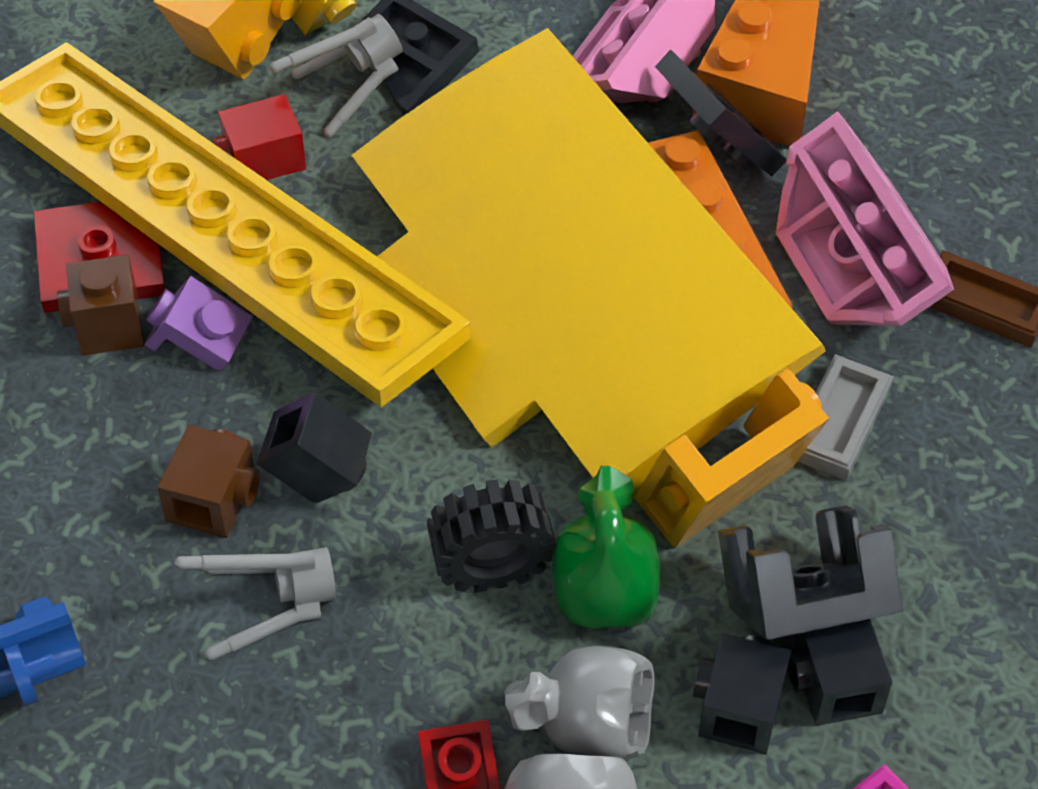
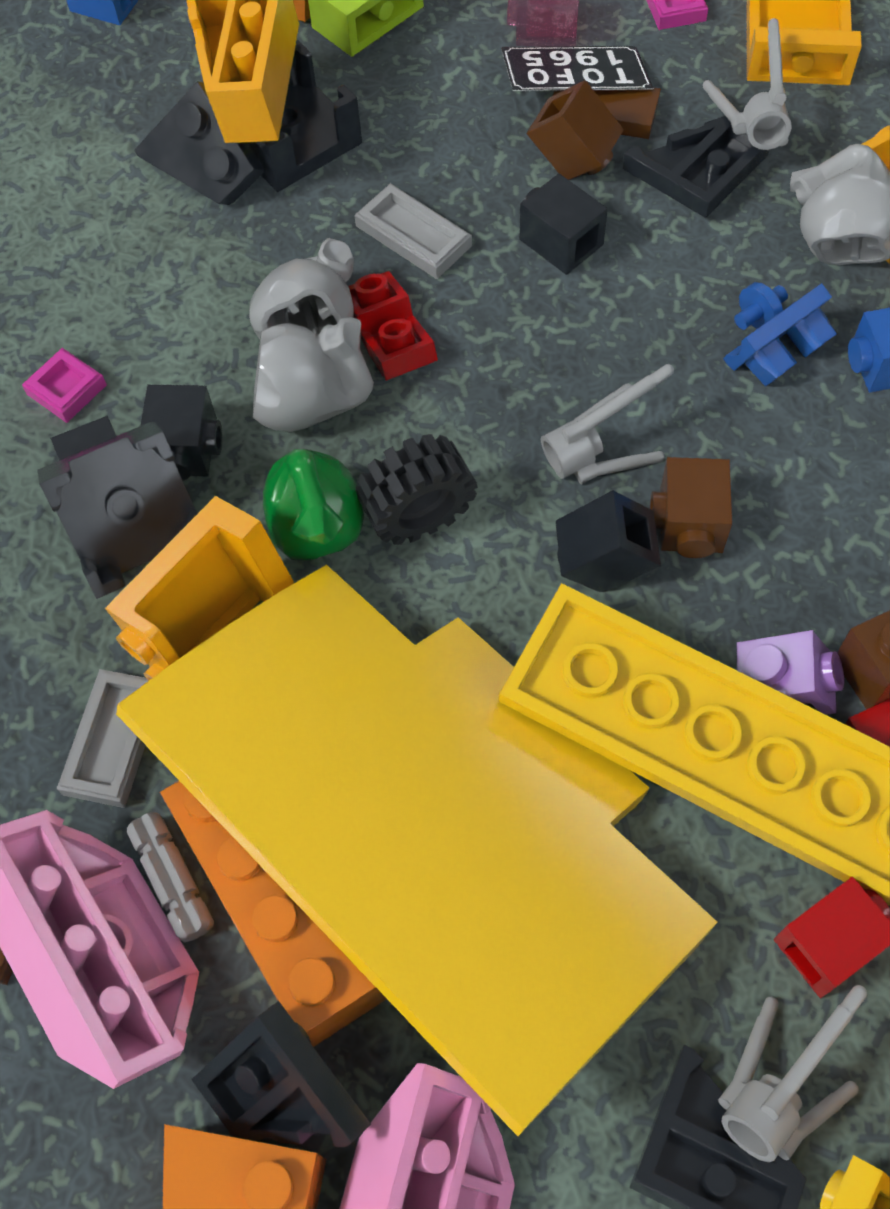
camera: 170 degrees right, 10 degrees up
(797, 289) = (170, 877): none -> light grey axle

